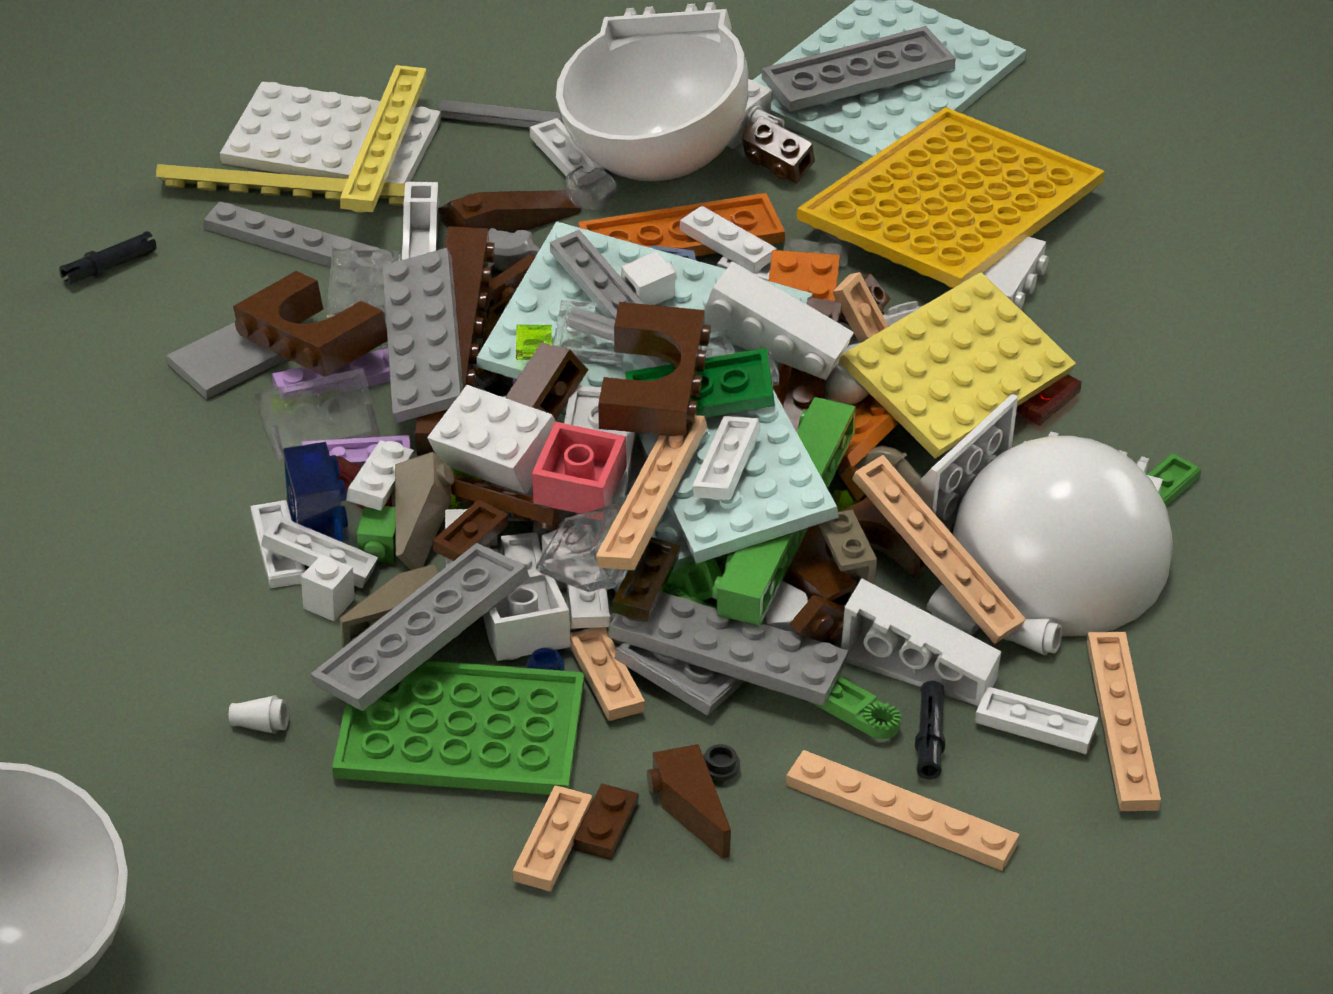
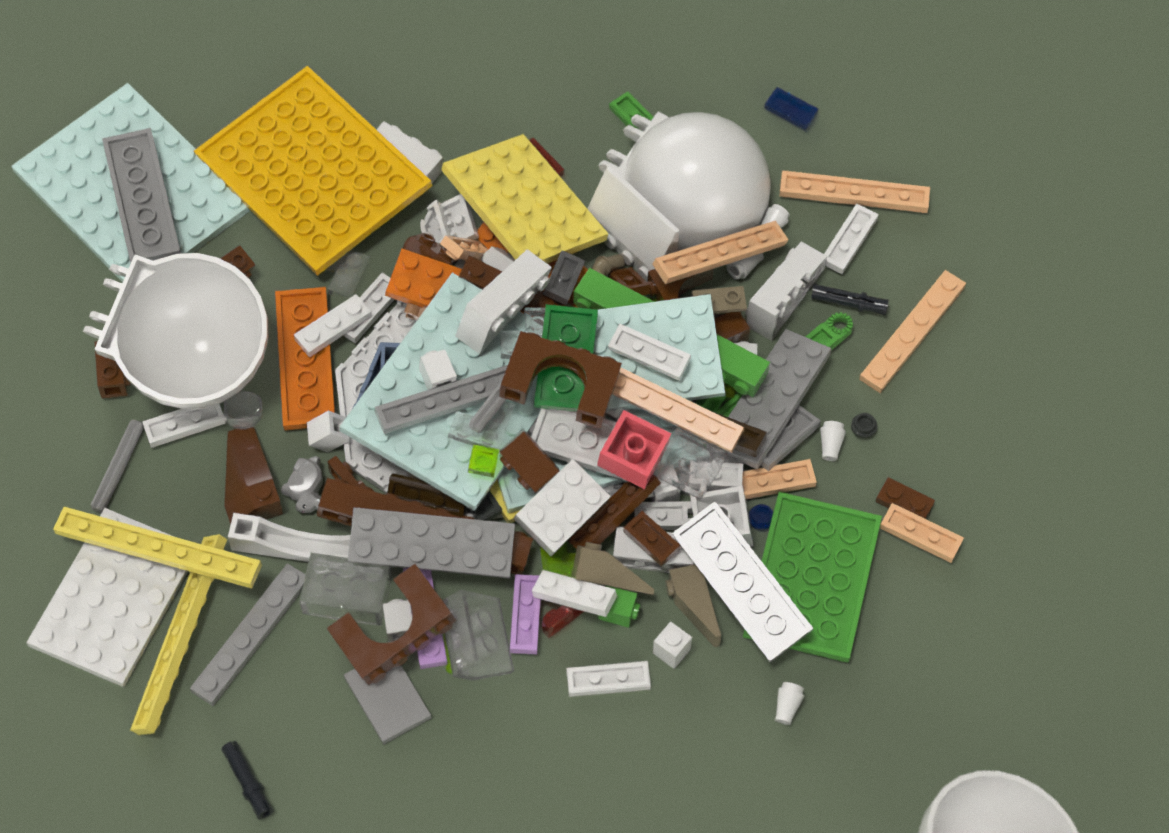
camera: 80 degrees left, 20 degrees up
(307, 545) = (635, 647): white plate -> none
(313, 489) = (584, 641): clear blue brick -> none
(685, 726) = (831, 438): none -> white cone
(690, 795) = (892, 446): reddish brown slope -> none
(820, 620) = (764, 336): reddish brown plate -> none
(863, 397) = (563, 277): none -> flat silver plate
(1244, 638) = (791, 108): none -> clear blue plate

